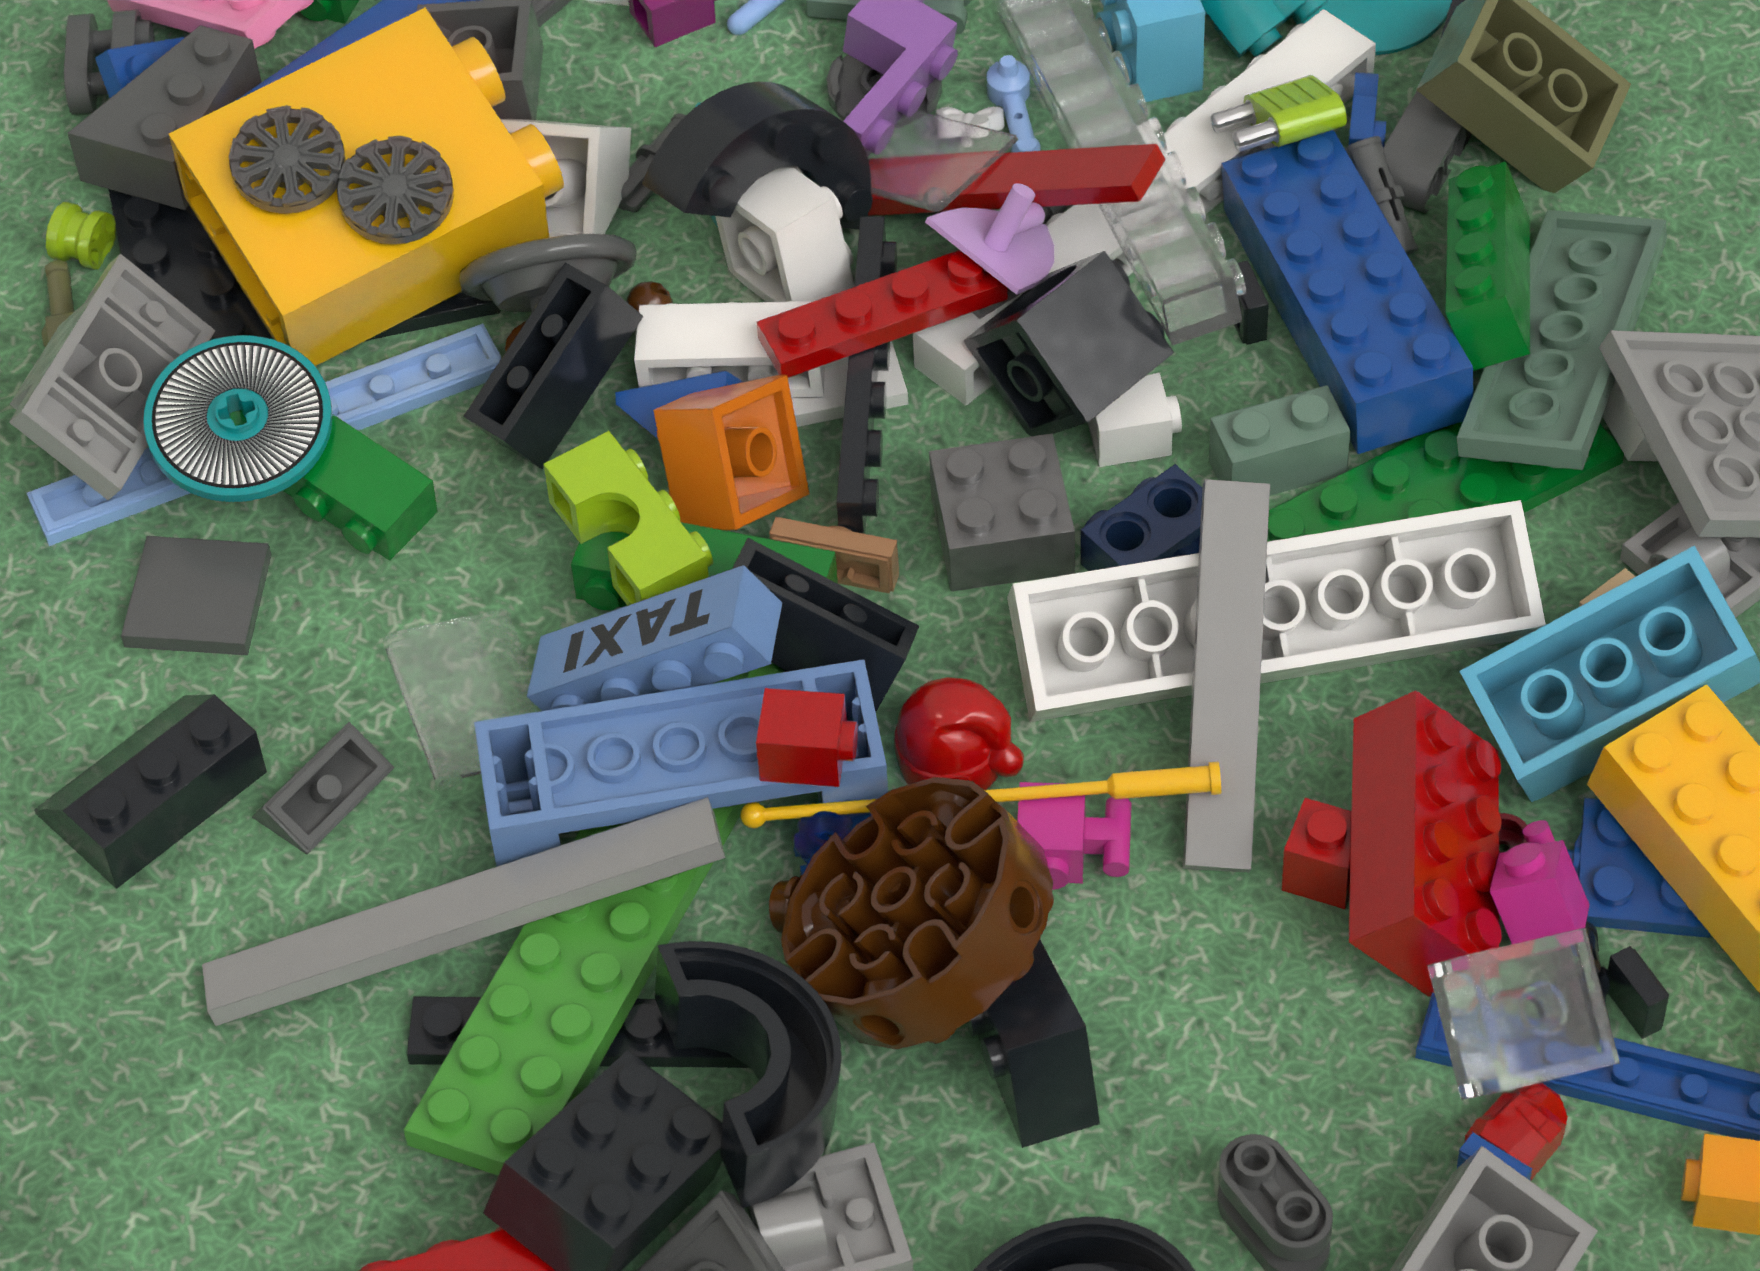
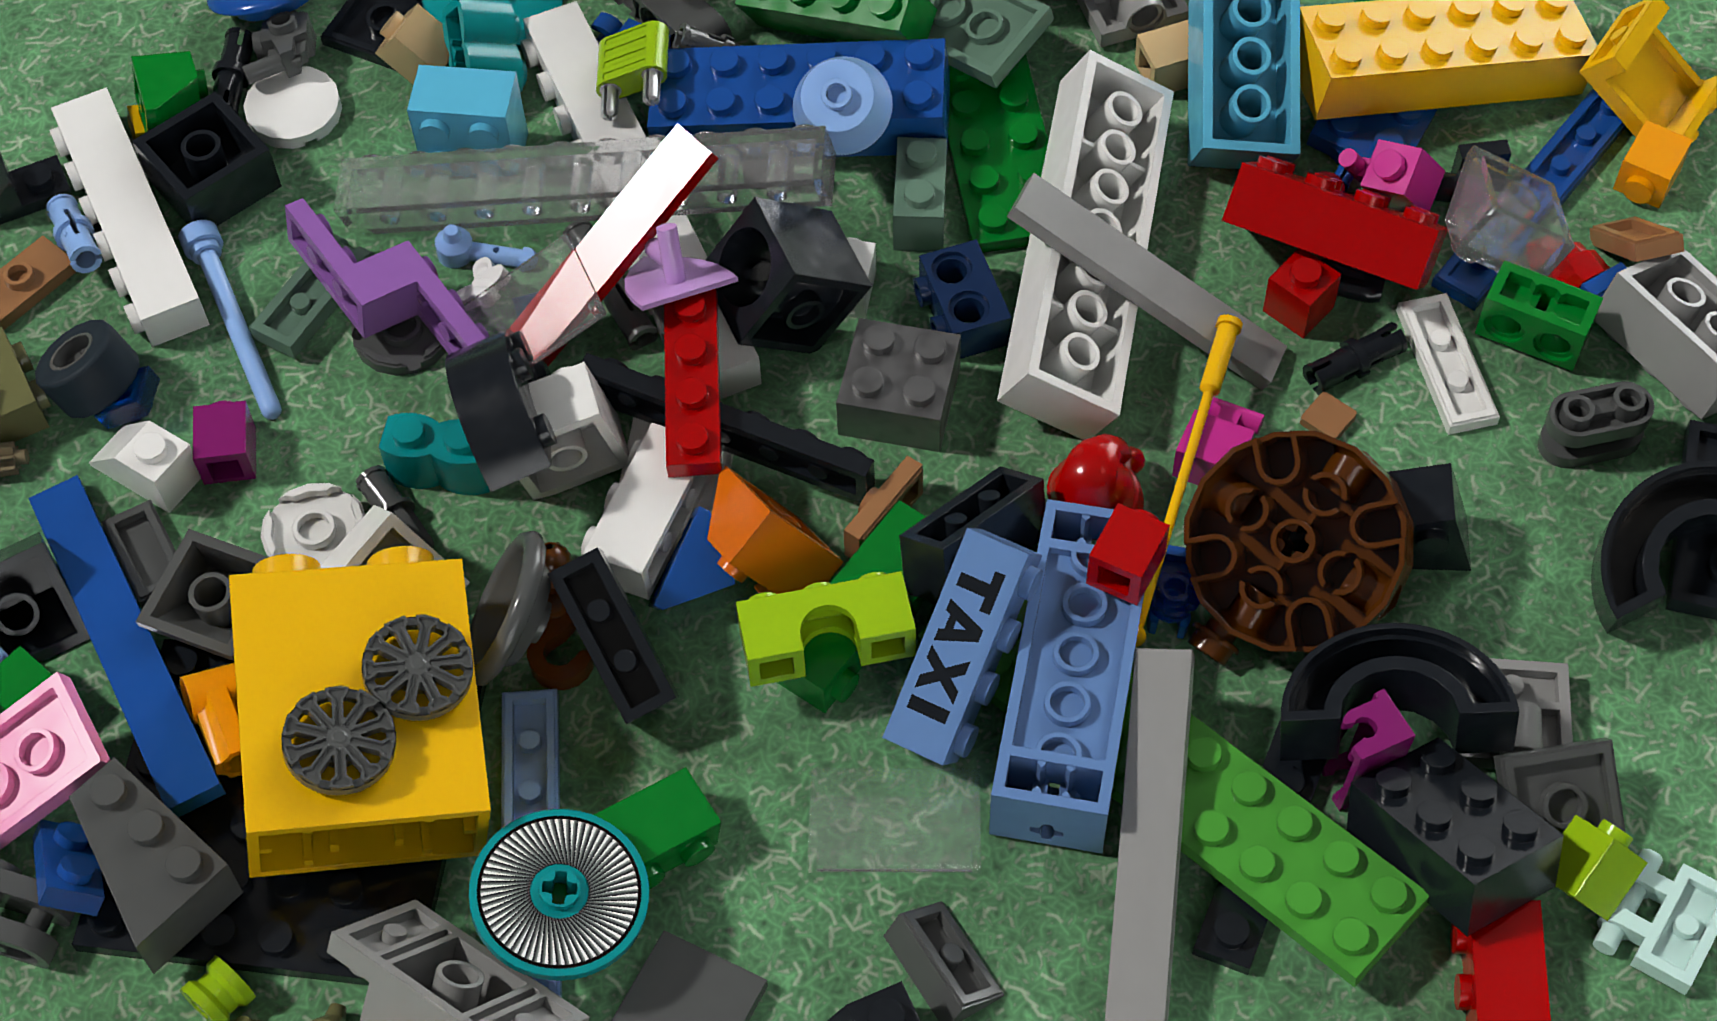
camera: 70 degrees left, 5 degrees up
(642, 99) = (317, 536): none -> white tile
(700, 1066) = (1378, 740): none -> magenta hinge
(1171, 943) = (1328, 416): none -> medium nougat piece
(1268, 943) = (1355, 358): none -> black pin
(1304, 296) = (846, 99): none -> light blue cone
(1312, 1044) = (1447, 364): none -> white tile
(1407, 1104) = (1538, 315): none -> green brick
(1587, 1184) = (1636, 239): none -> medium nougat tile

